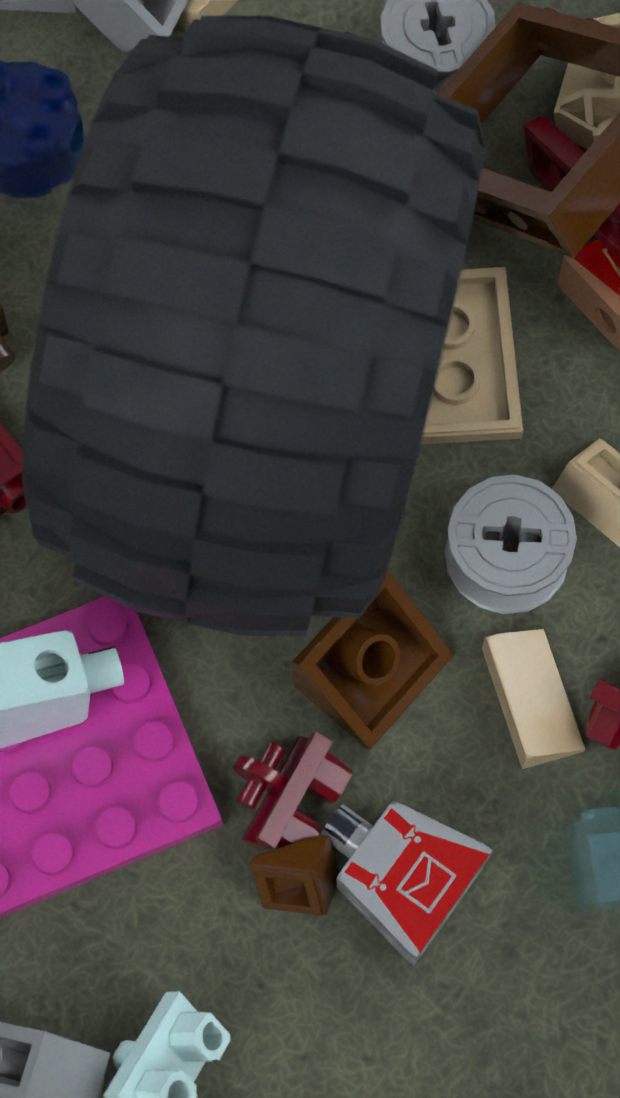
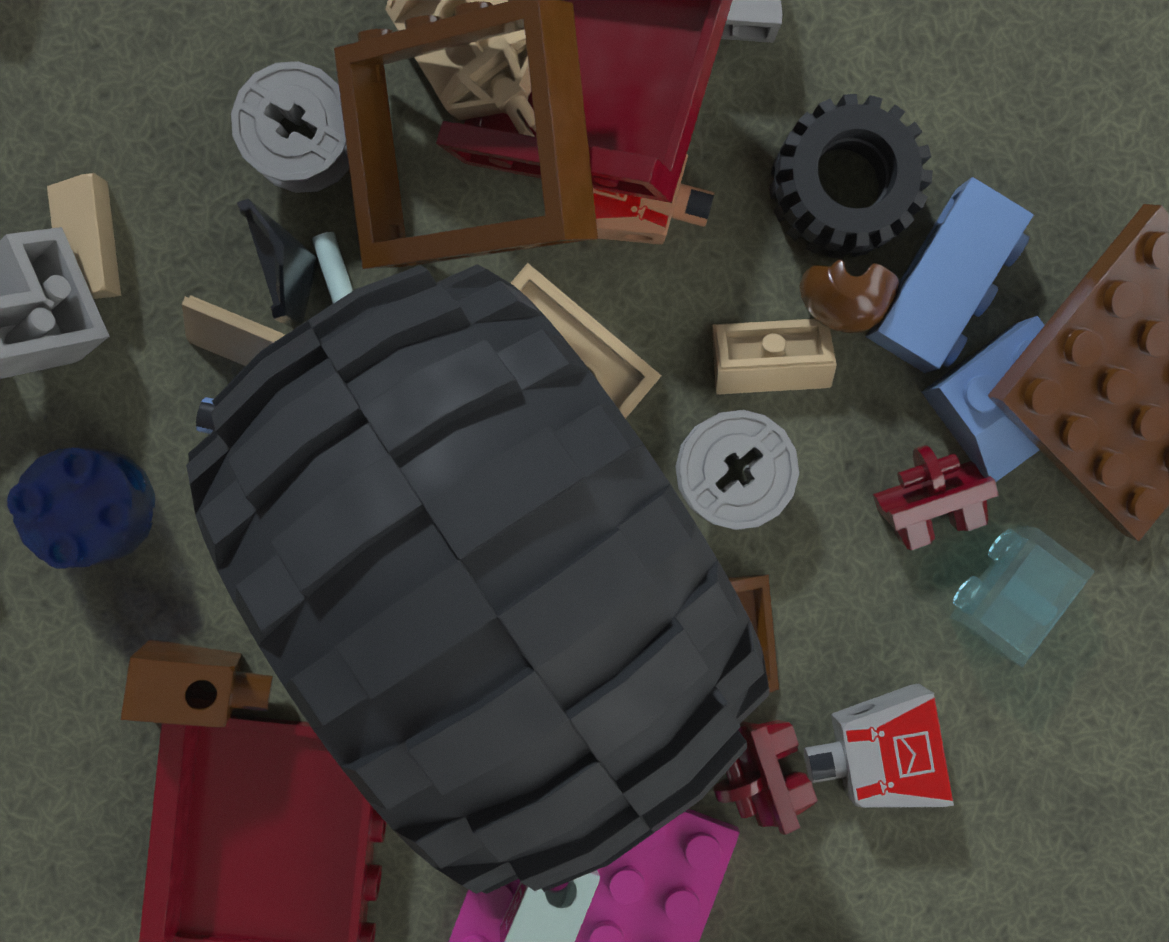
camera: 50 degrees left, 20 degrees up
(297, 876) = (825, 820): reddish brown slope -> none
(532, 697) = (847, 552): tan slope -> none

